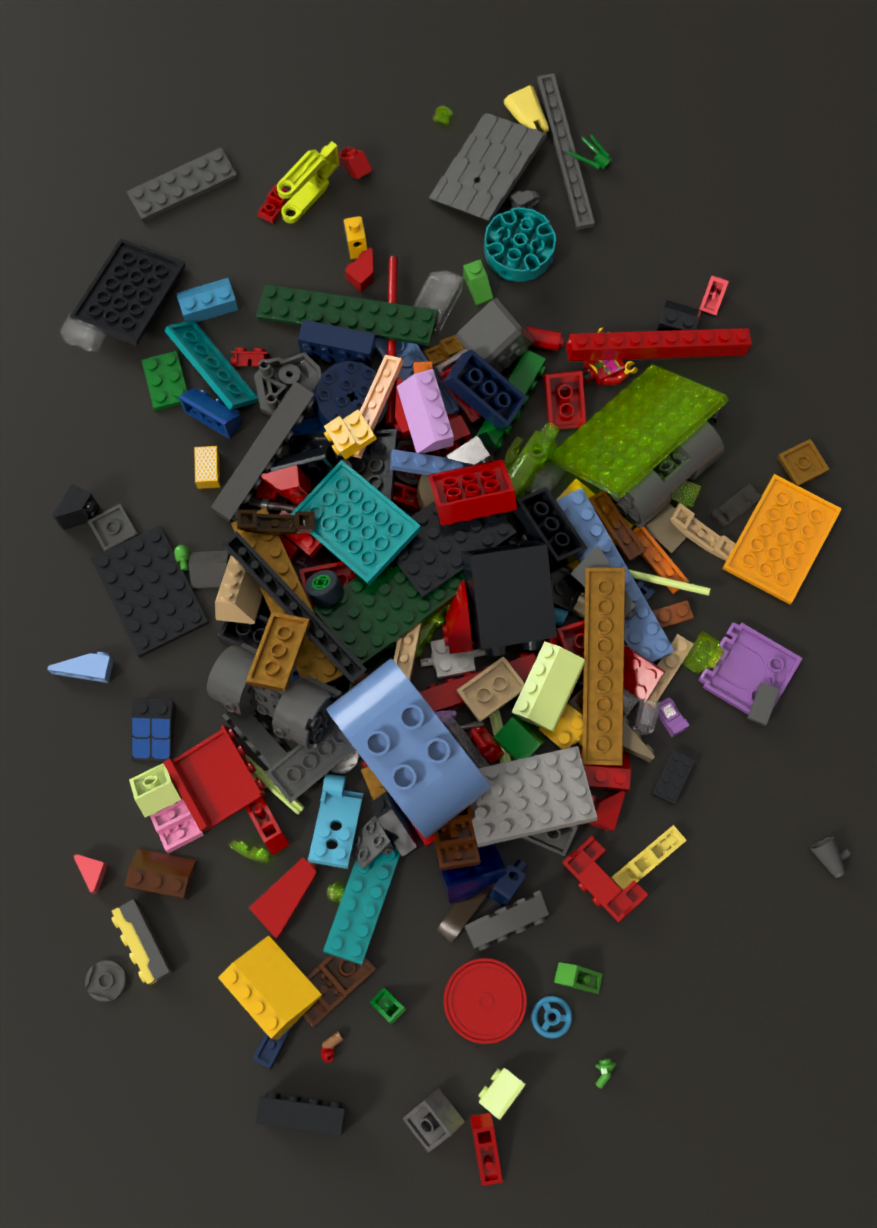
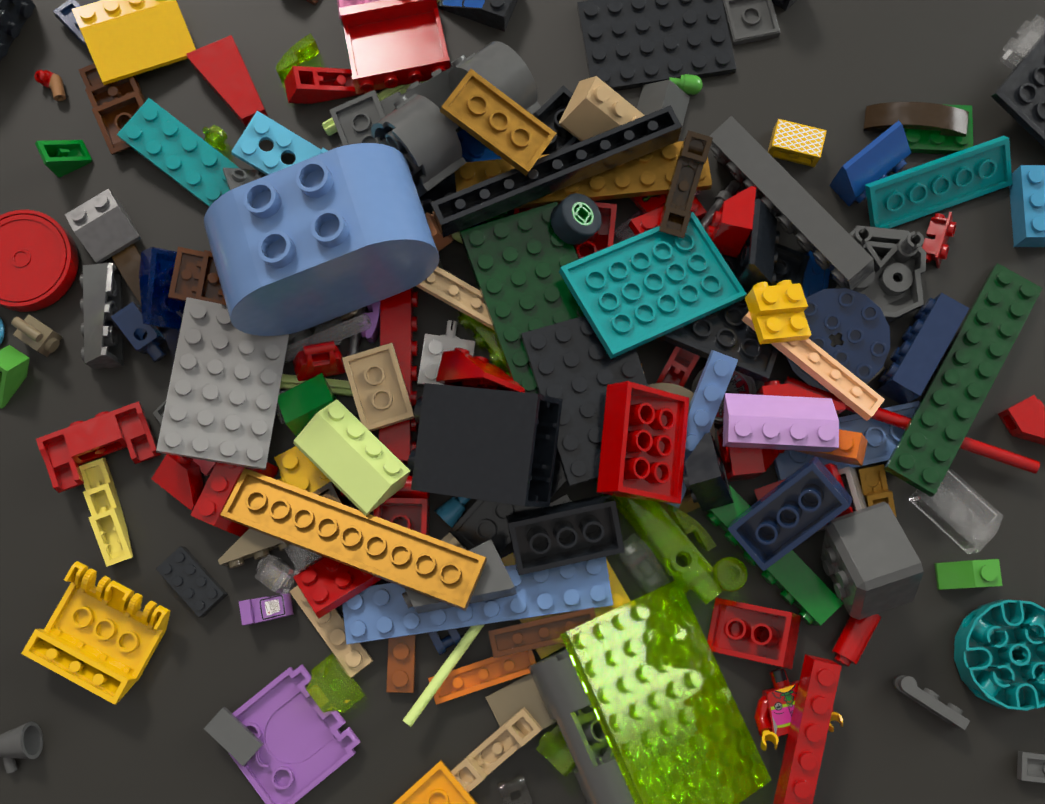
camera: 110 degrees right, 5 degrees up
(164, 393) = (917, 115): none -> dark brown slope
(437, 947) = (103, 226): none -> flat silver slope
(531, 422) = (729, 574): none -> clear neon green head
(539, 964) = (36, 334): none -> dark tan brick
(566, 286) = (929, 700): none -> dark grey plate
(734, 824) = (99, 635): none -> yellow slope

